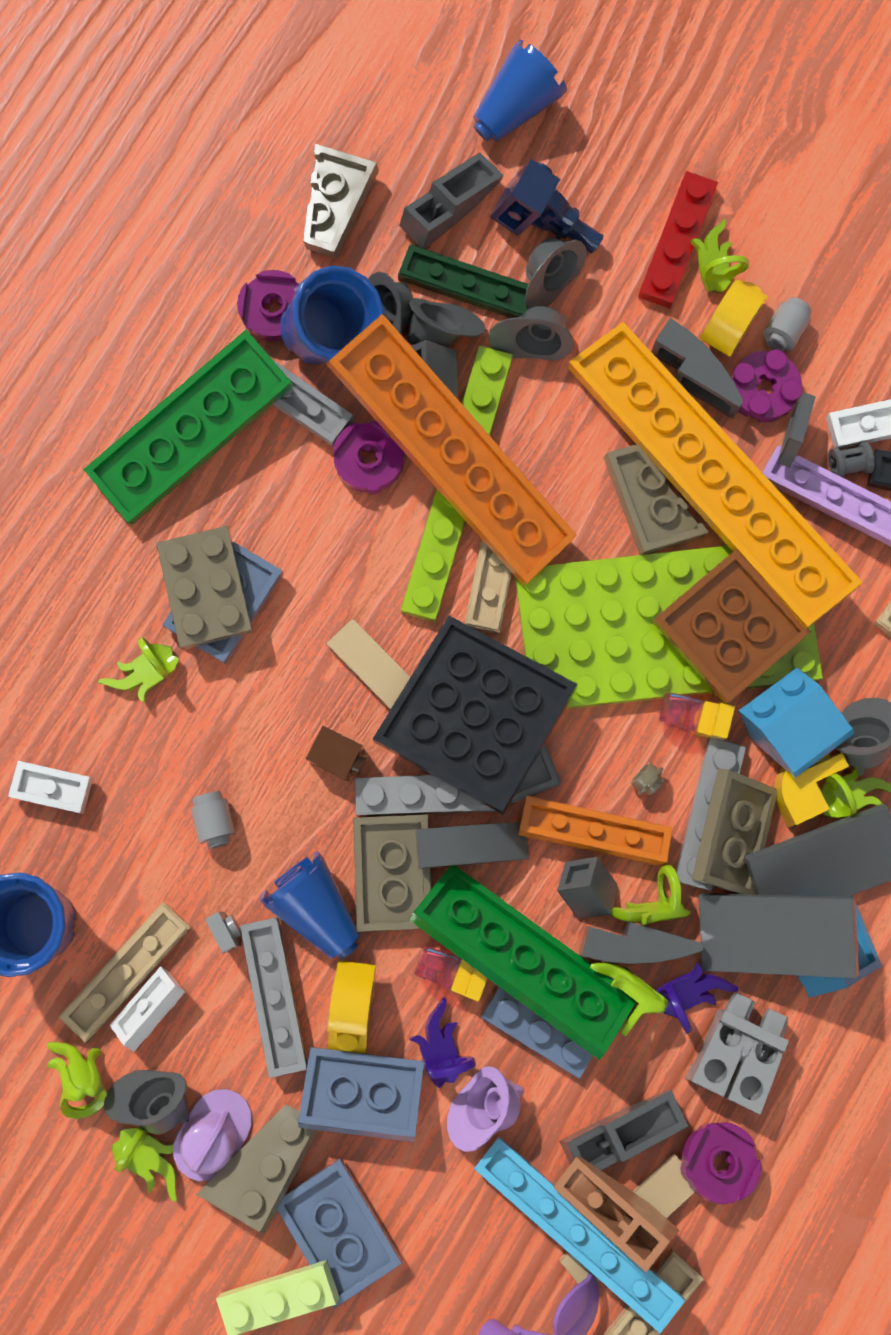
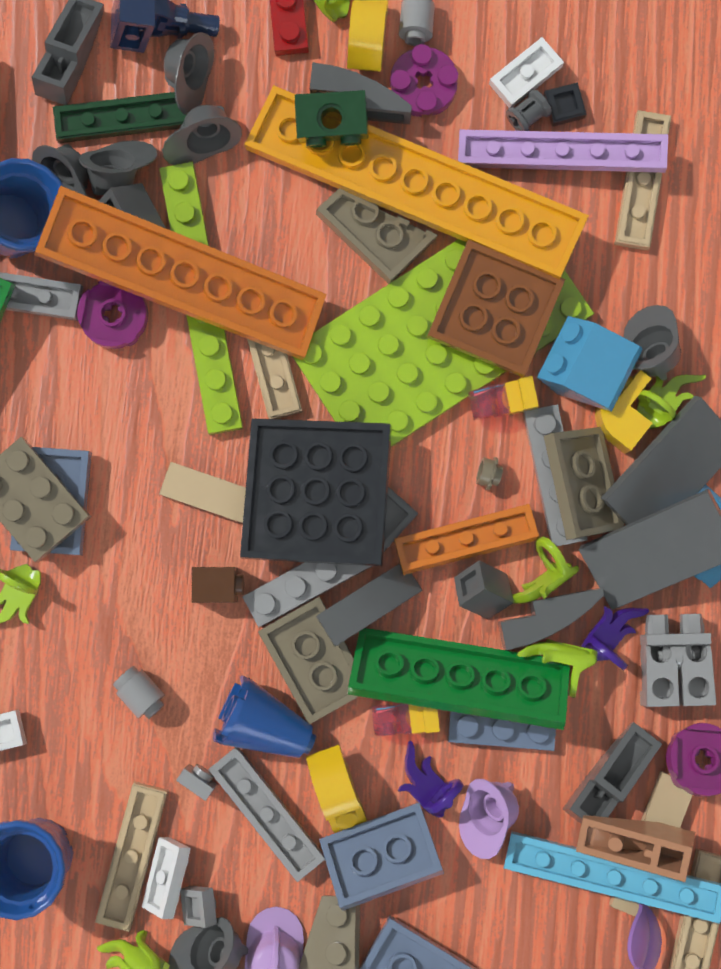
camera: 20 degrees left, 5 degrees up
(163, 1052) = (198, 906): none -> light grey plate
(650, 358) = (313, 107): none -> dark green brick
(796, 429) = (469, 108): dark grey tile -> none

